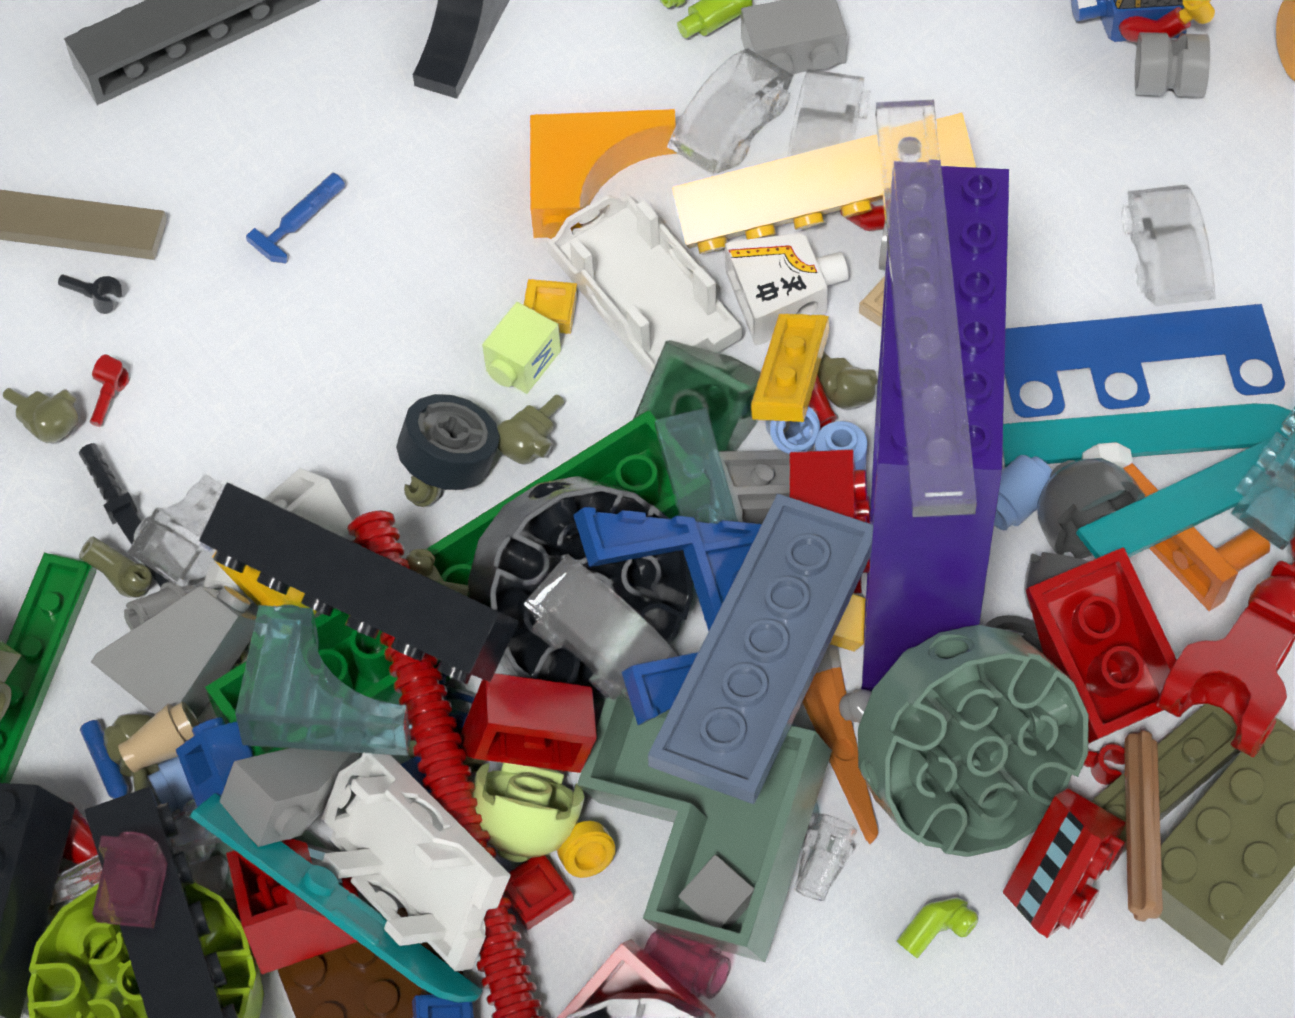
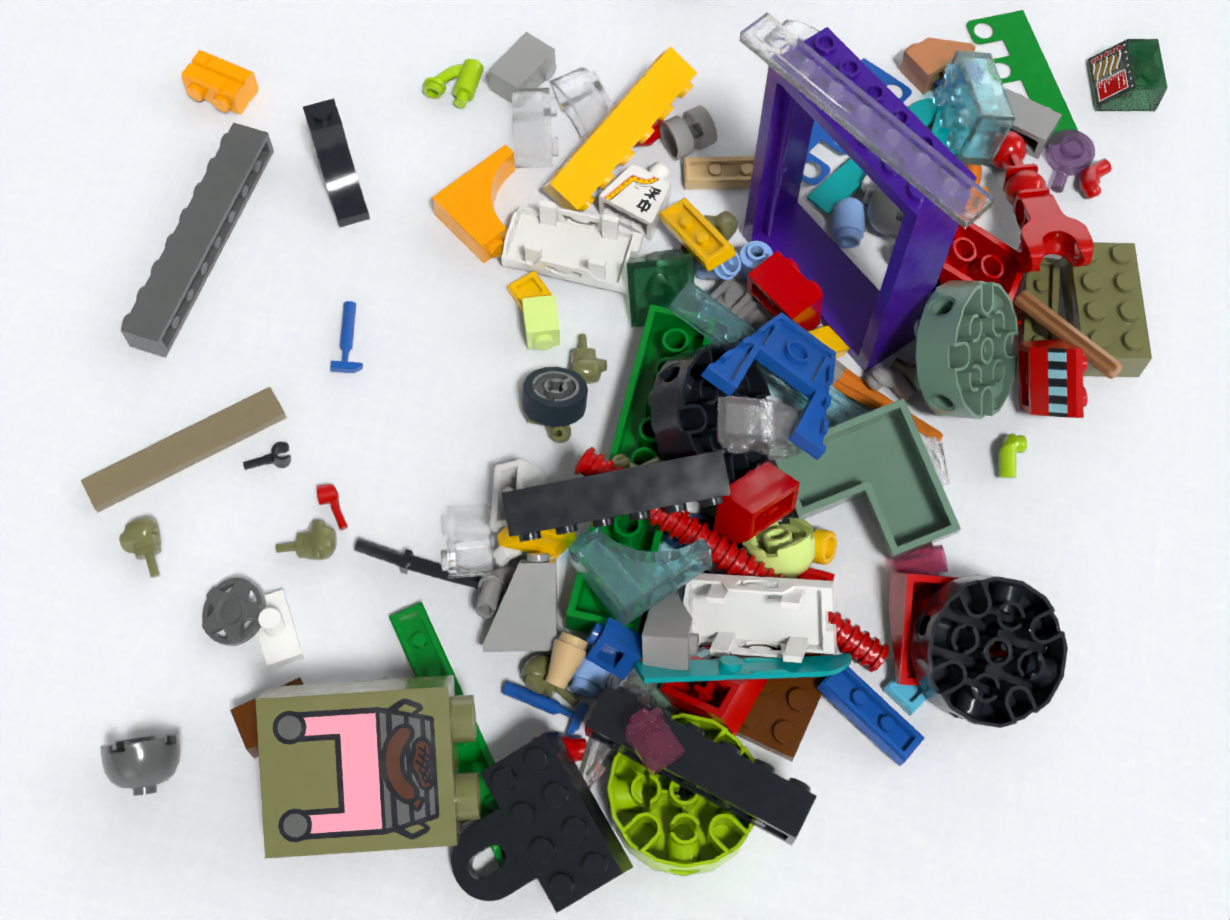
camera: 45 degrees left, 5 degrees up
(124, 574) = (445, 594): olive arm -> none
(718, 894) = (910, 517): light grey tile -> none
(763, 649) = (843, 376): sand blue plate -> none

